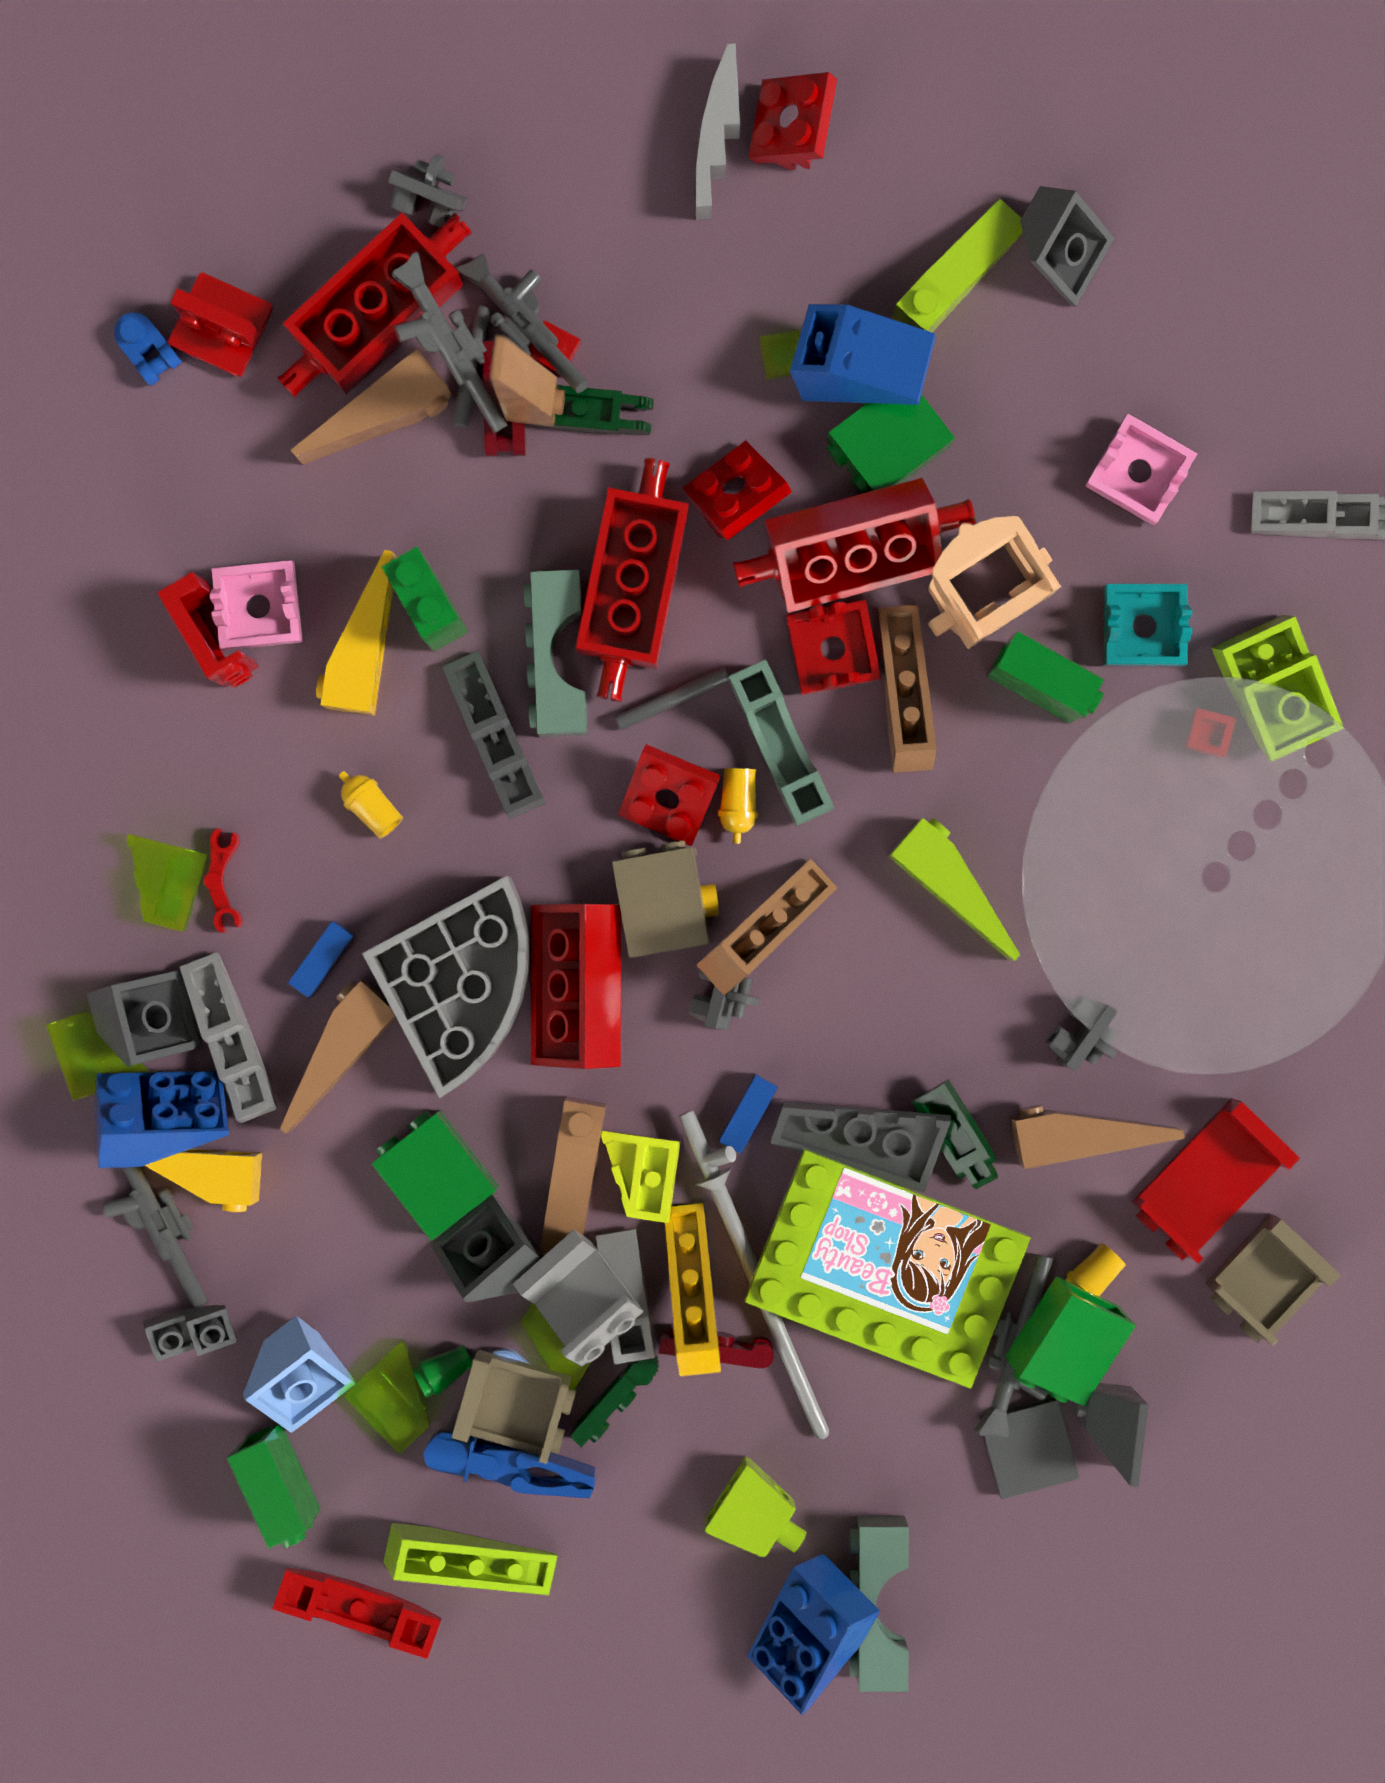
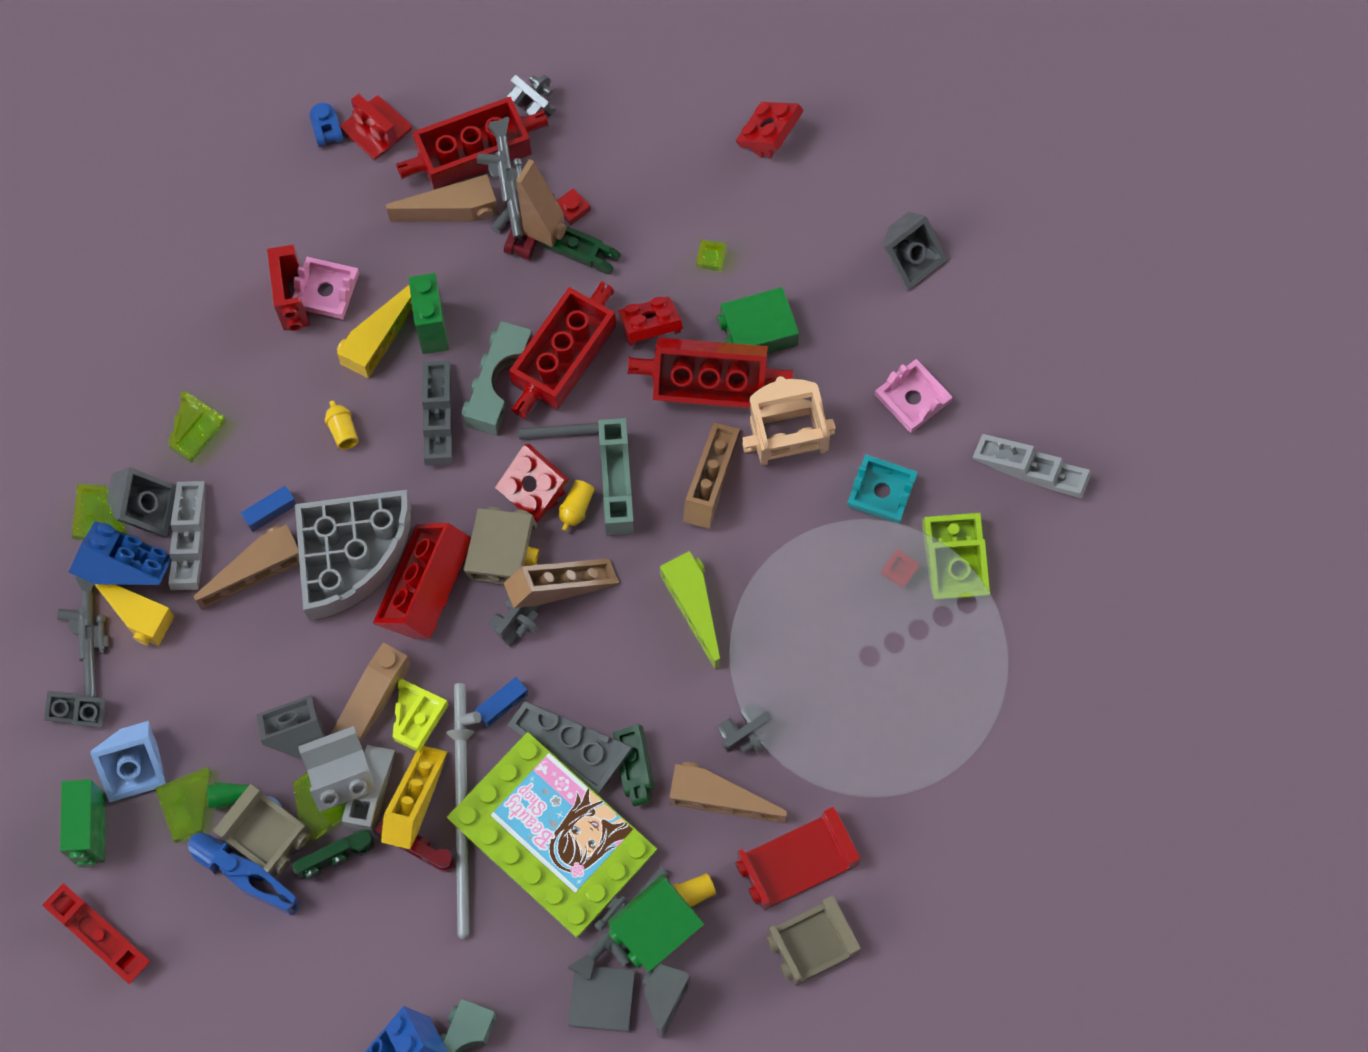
camera: 20 degrees right, 20 degrees down
(214, 879) = (223, 438): red piece -> none
(434, 1173) = (279, 665): green brick -> none
(465, 1560) = (188, 929): lime slope -> none
(524, 326) = (560, 176): dark grey piece -> none
(719, 123) = (723, 115): light grey slope -> none
(754, 1513) = (394, 968): lime torso -> none
(841, 620) = (672, 416): red piece -> none
(860, 357) = (755, 266): blue slope -> none
(959, 269) = (837, 245): lime slope -> none
(1046, 678) = (801, 492): green brick -> none

